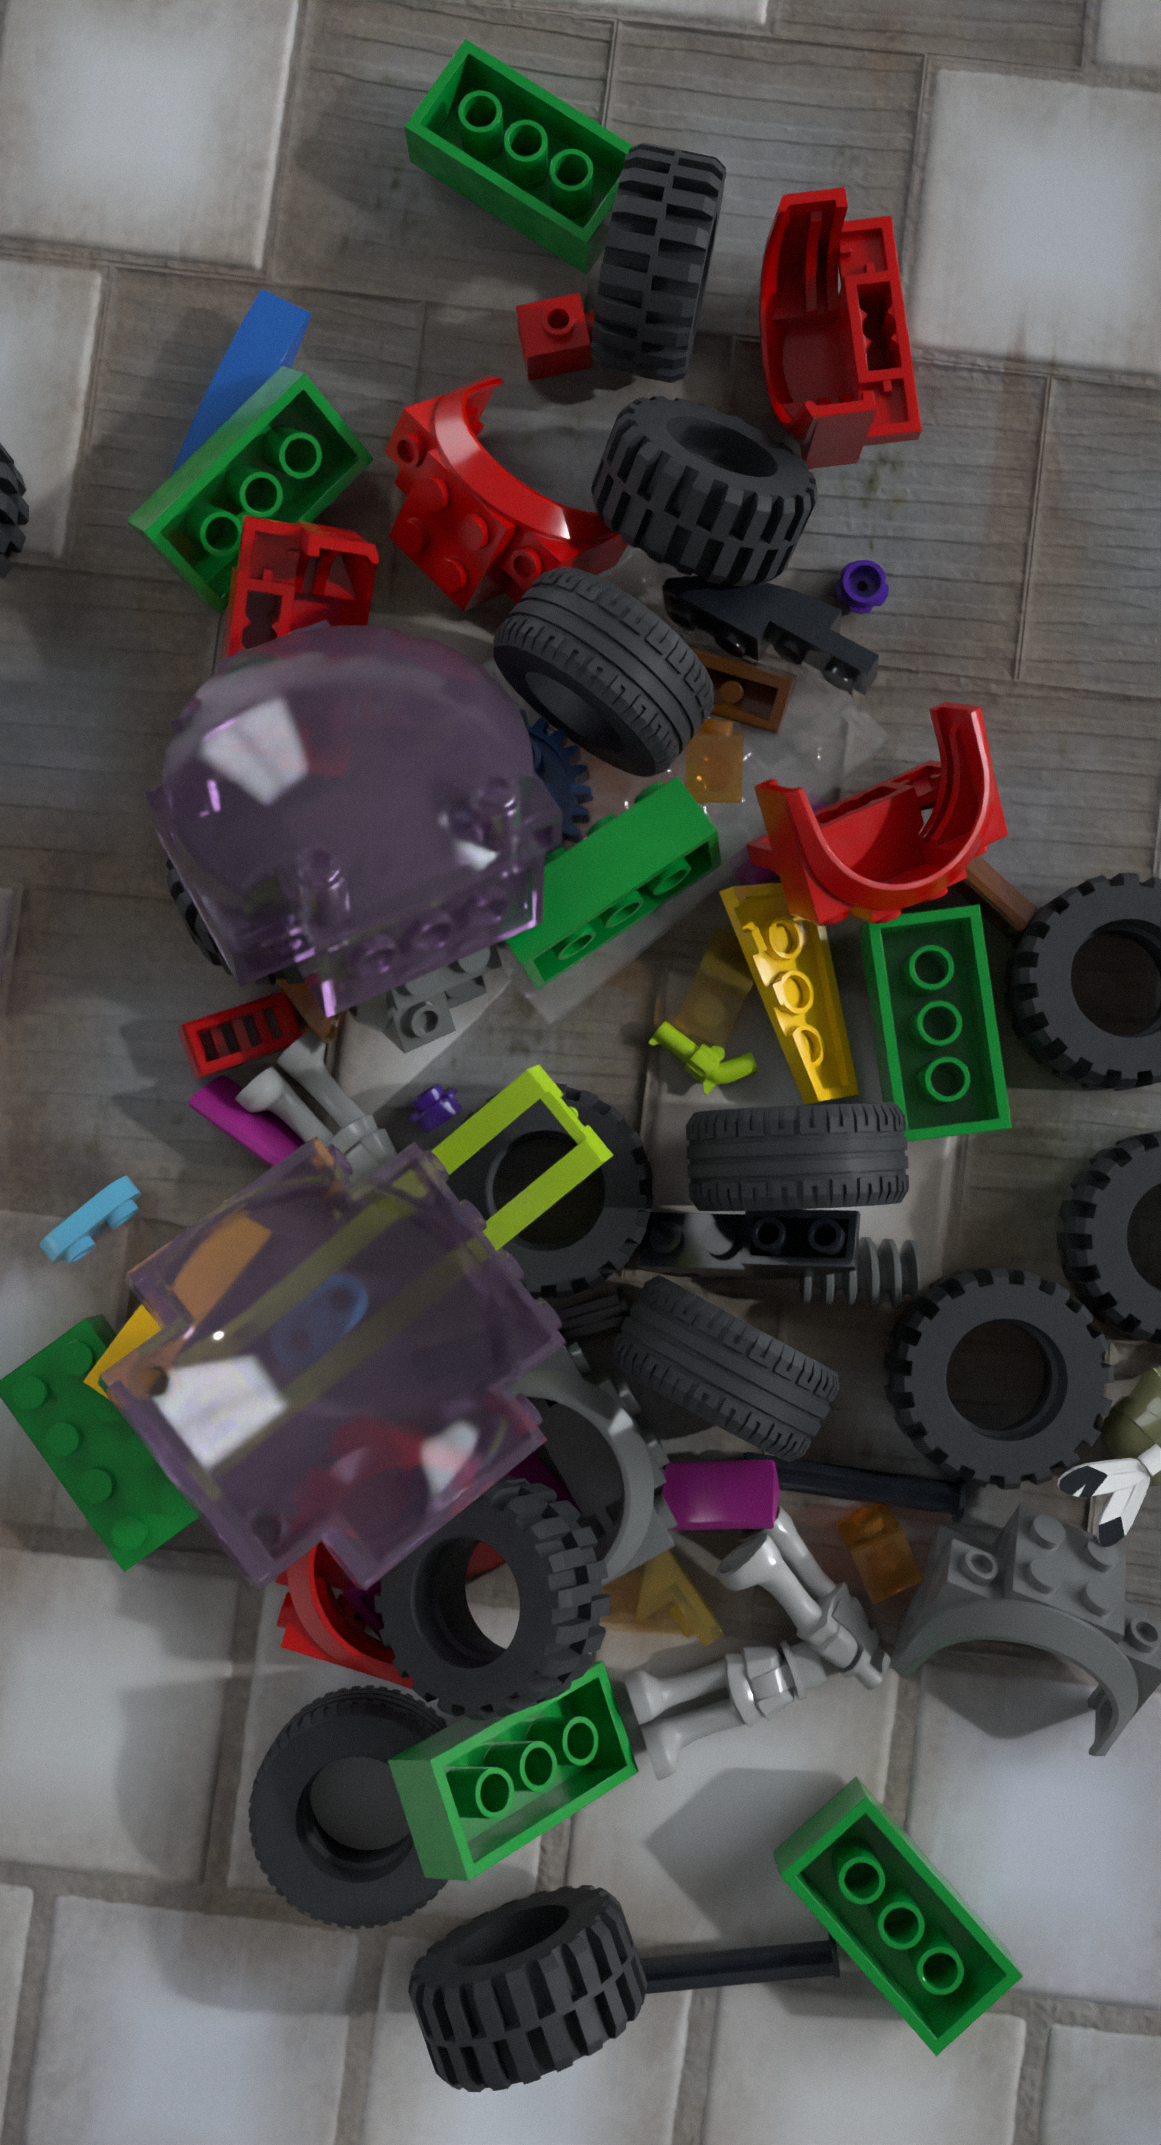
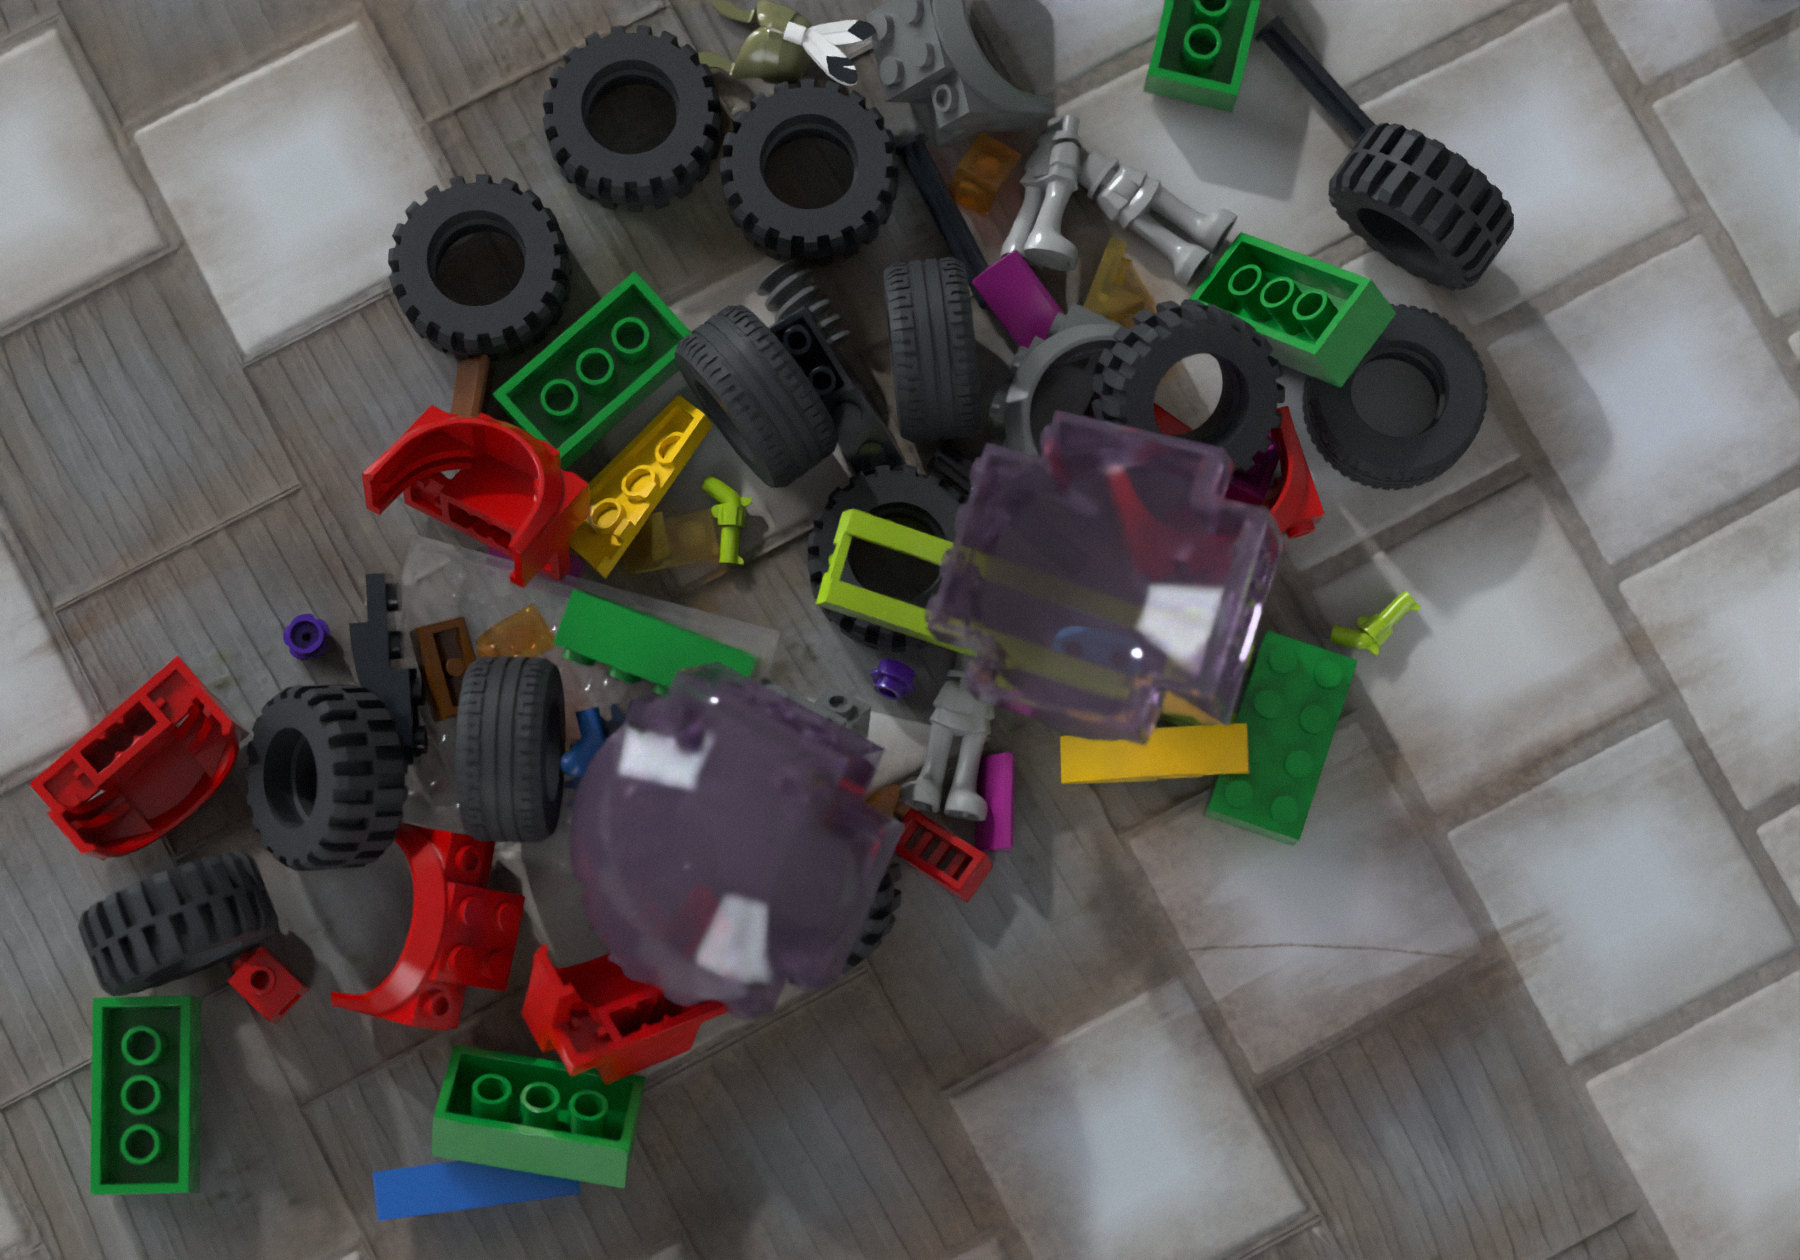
camera: 130 degrees left, 5 degrees down
(74, 1236) = (1161, 867): medium azure plate -> none
(155, 1615) = (1376, 628): none -> lime piece
(558, 759) = (592, 738): none -> blue arm

